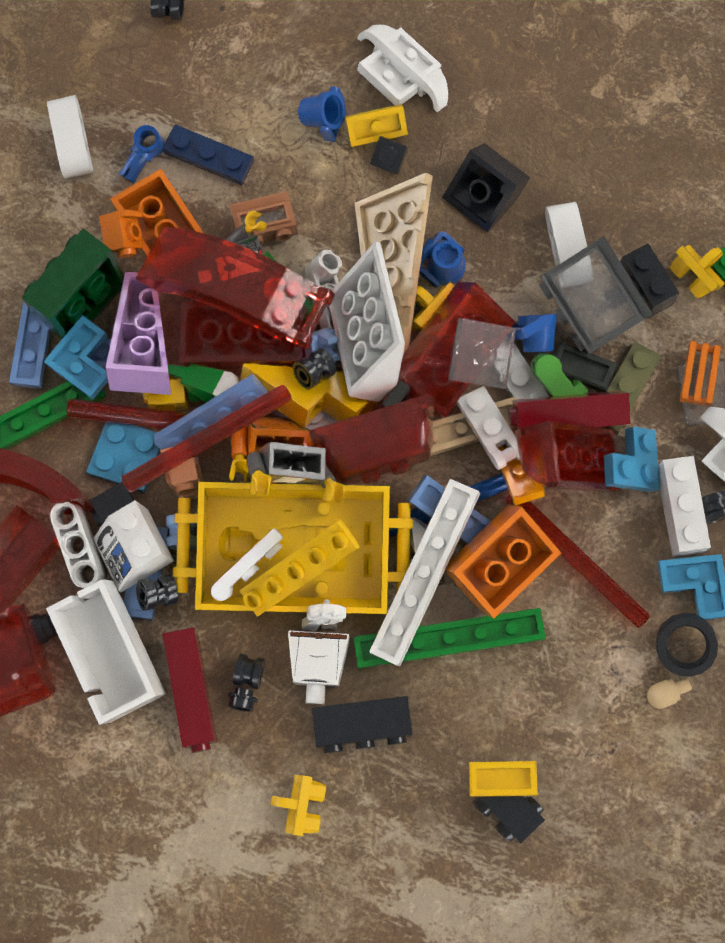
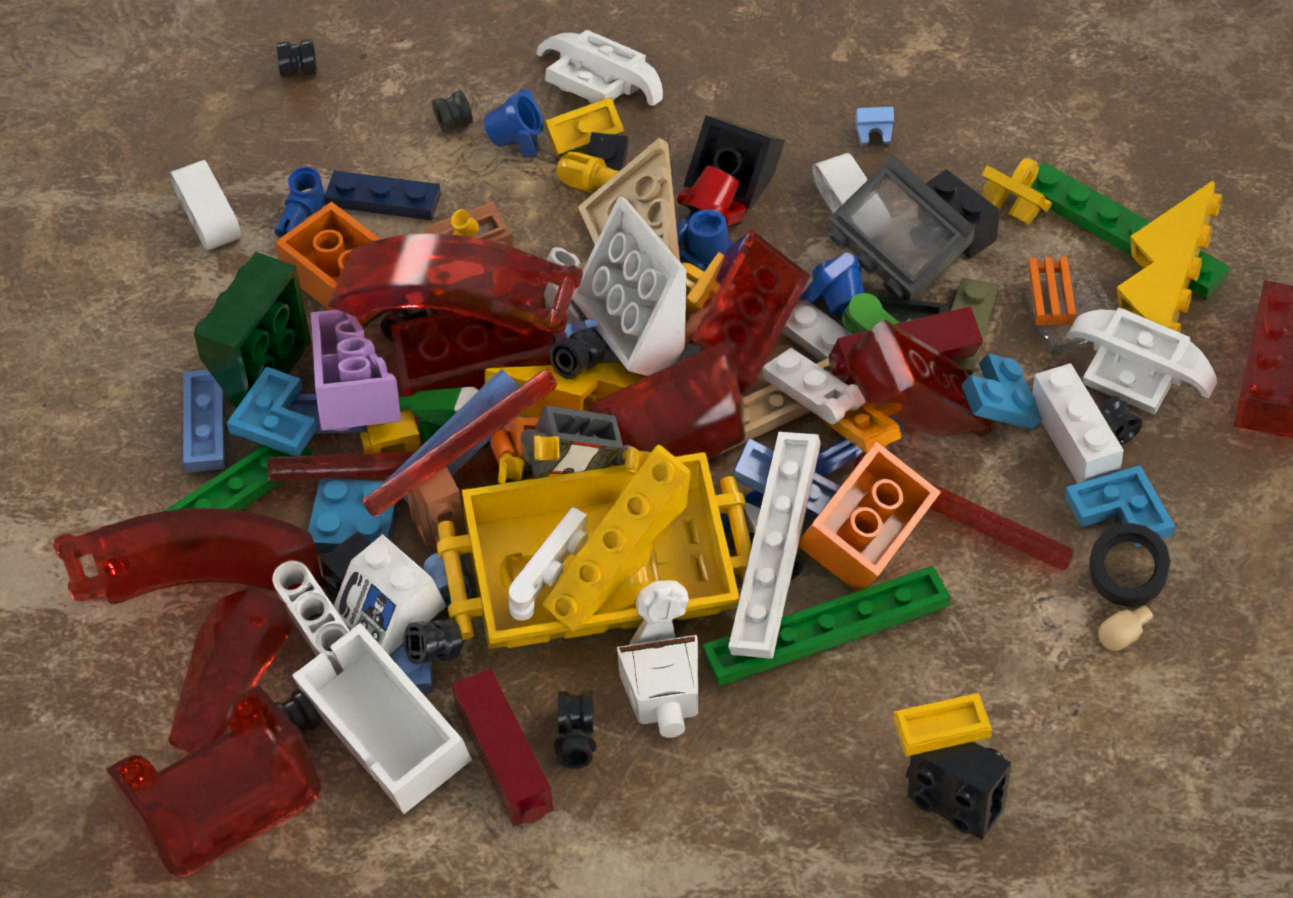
camera: 15 degrees left, 25 degrees down
(122, 232) = (302, 252): orange brick -> none
(277, 86) = (452, 111): none -> pearl dark grey wheel
(302, 791) = (679, 848): yellow hips -> none
(362, 723) = (741, 737): black brick -> none
(369, 172) = (583, 171): none -> yellow arm
(458, 223) = (714, 192): none -> red piece
(482, 353) = (779, 308): clear tile -> none
(608, 171) = (874, 119): none -> light blue tile

